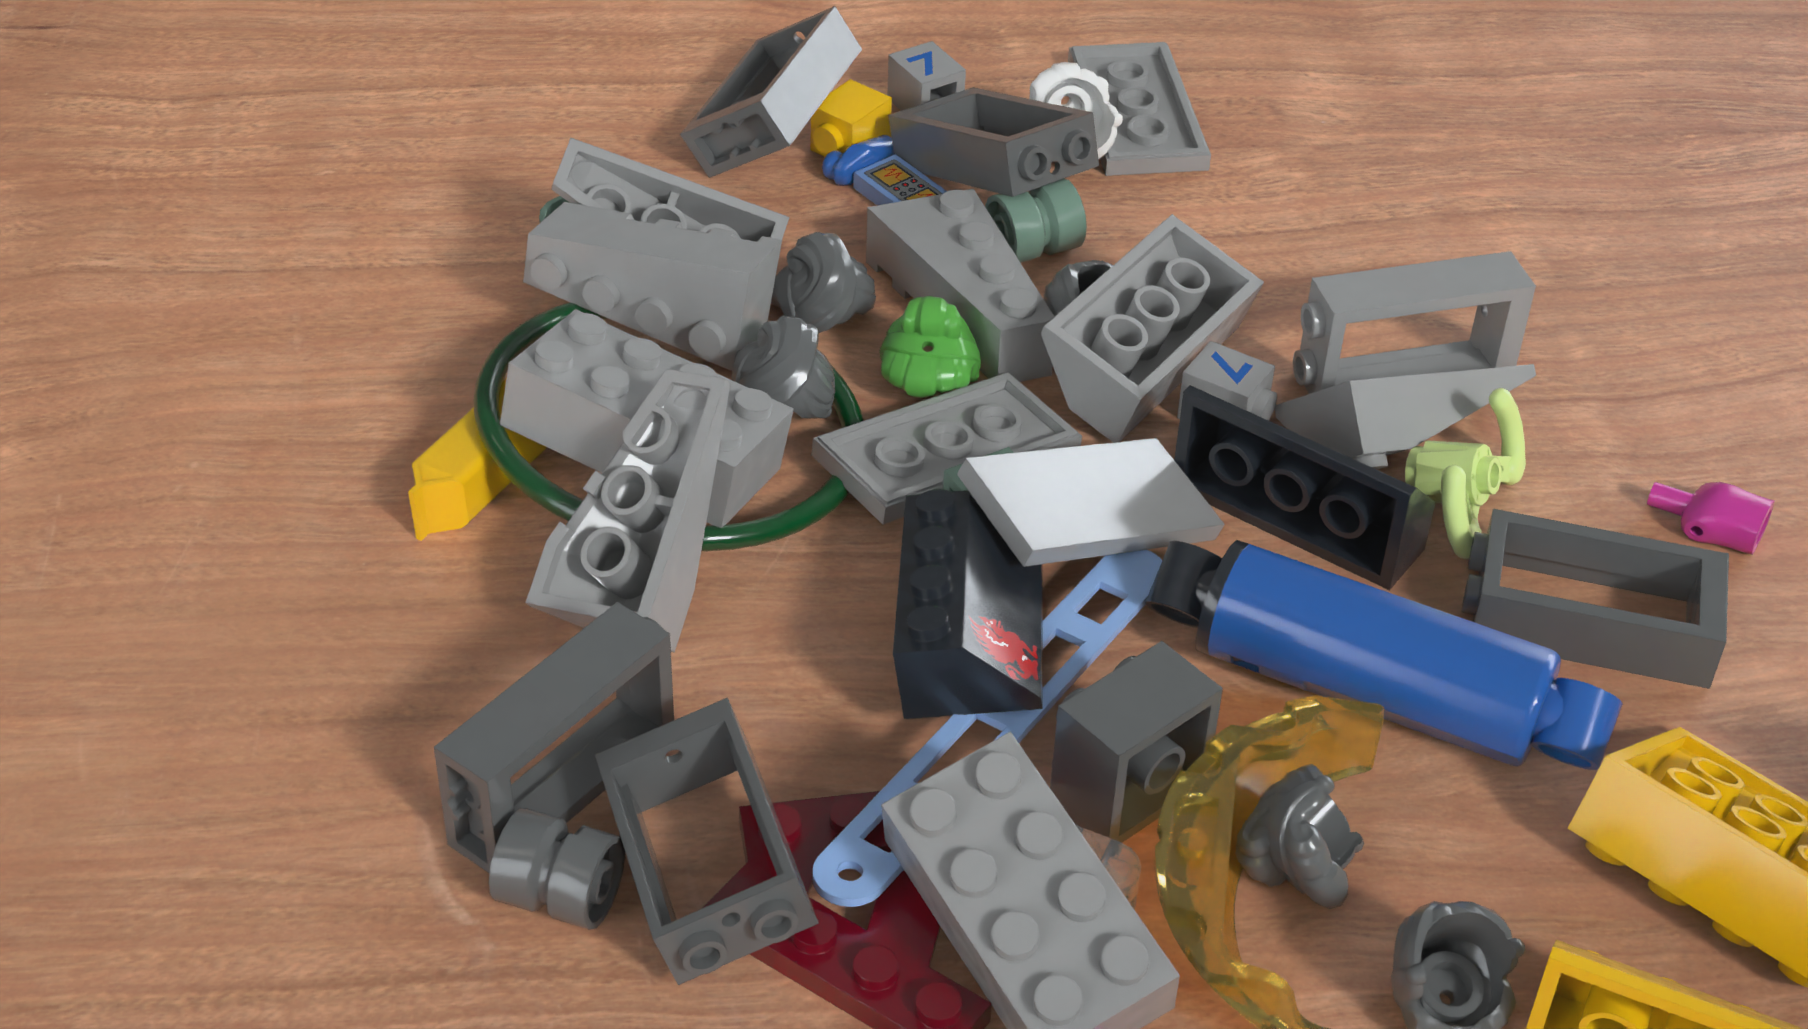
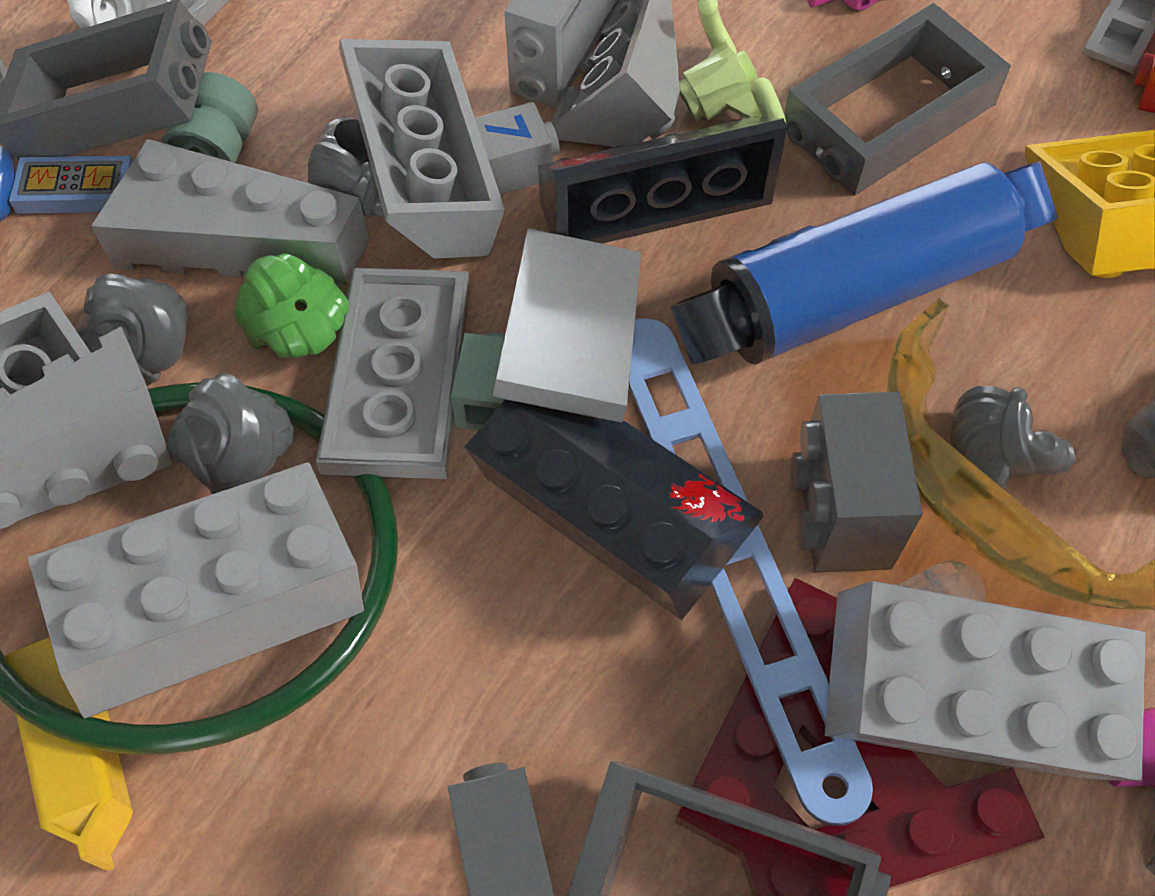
camera: 50 degrees left, 20 degrees up
(643, 516) = (333, 692): light grey wedge -> none

